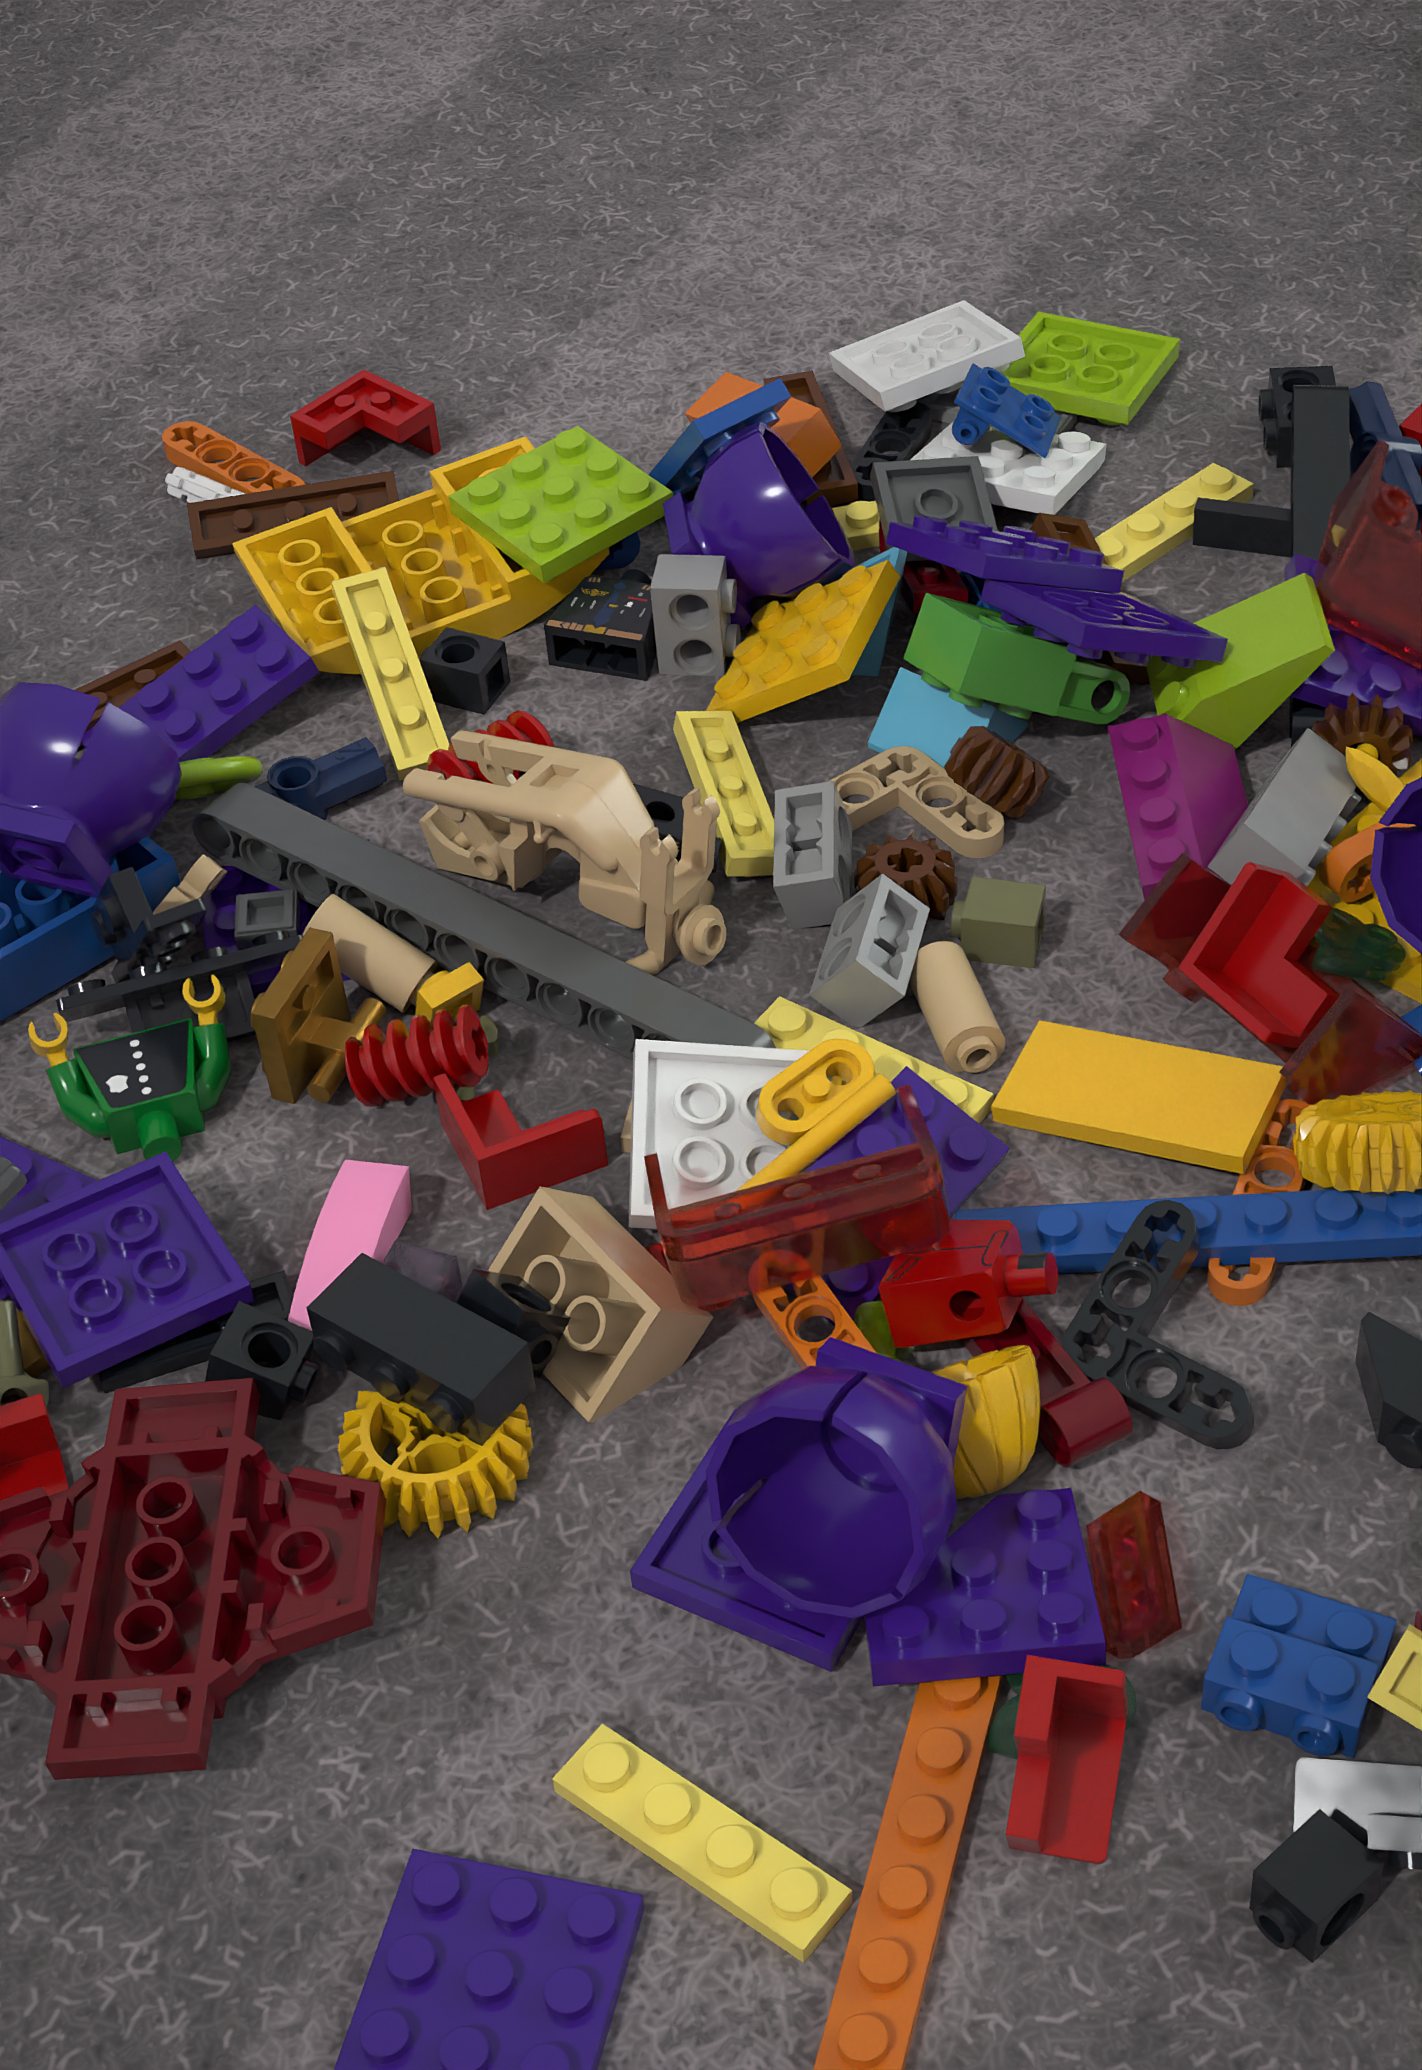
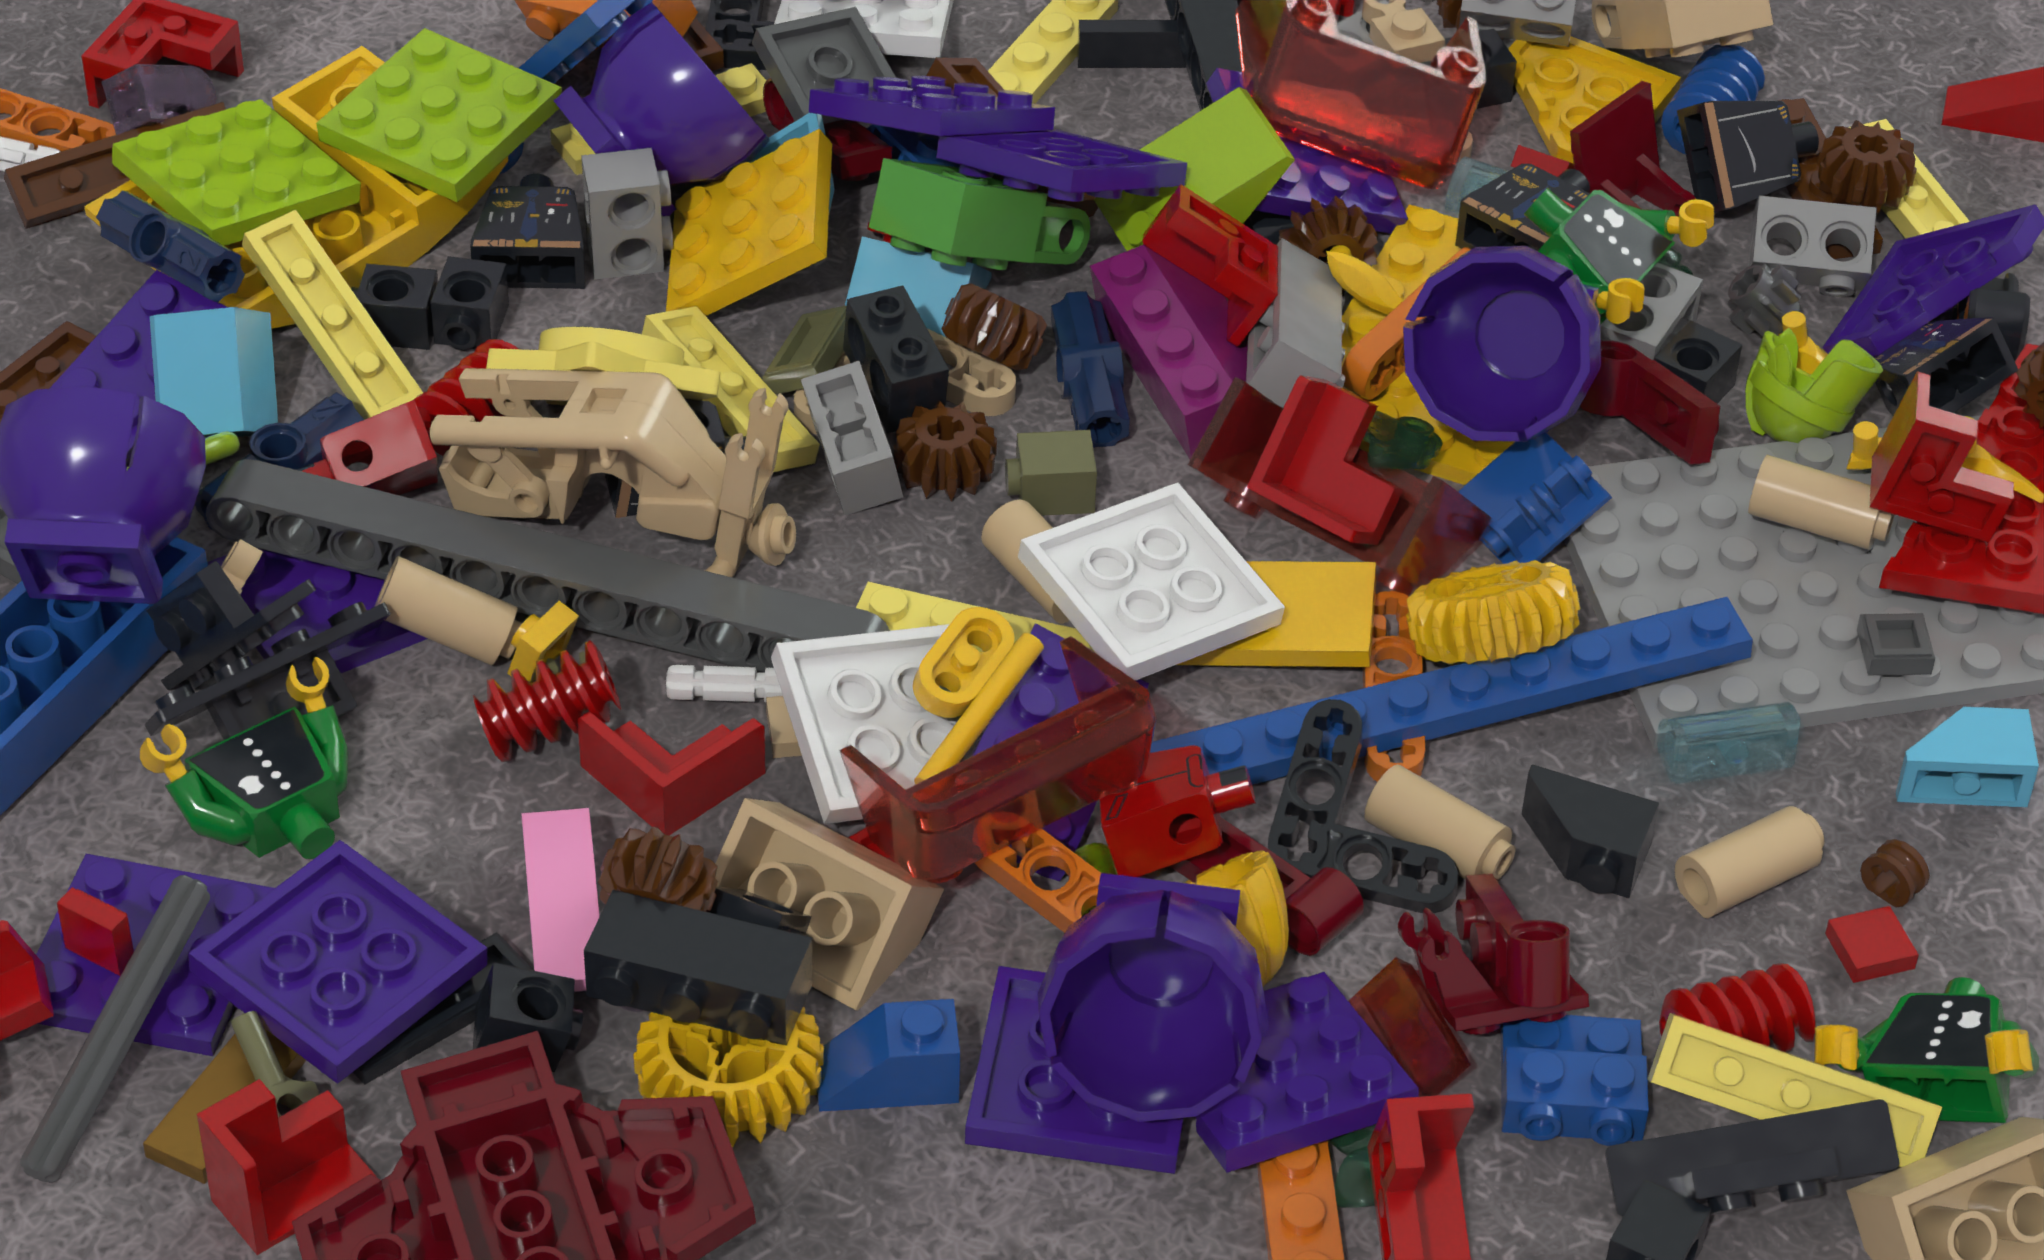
camera: 25 degrees left, 0 degrees up
(264, 914) = (331, 595): dark grey tile -> none
(266, 701) = (216, 368): none -> medium azure slope
(270, 585) = (170, 246): none -> dark blue piece
(306, 1021) = (416, 699): pearl gold plate -> none
(335, 454) = (155, 93): none -> clear purple leg
(366, 526) = (235, 171): none -> lime plate
(369, 799) = (390, 444): none -> torso
(419, 1245) = (659, 869): none -> reddish brown gear
(529, 676) = (469, 302): none -> black brick
(590, 1067) = (721, 683): none -> white axle
(595, 1483) = (894, 1059): none -> blue slope
(642, 754) = (609, 351): none -> light yellow plate
(823, 761) = (808, 350): none -> olive tile
(870, 952) = (945, 523): light grey brick -> none
(883, 780) = (895, 354): none -> black brick
(1038, 1047) = (1151, 582): none -> white plate
(1079, 828) = (1090, 368): none -> dark blue piece
(1234, 1549) = (1464, 988): none -> dark red plate
(1236, 728) = (1219, 254): none -> red panel
(1255, 1356) = (1430, 816): none -> tan brick
(1273, 1517) = (1520, 956): none -> dark red plate

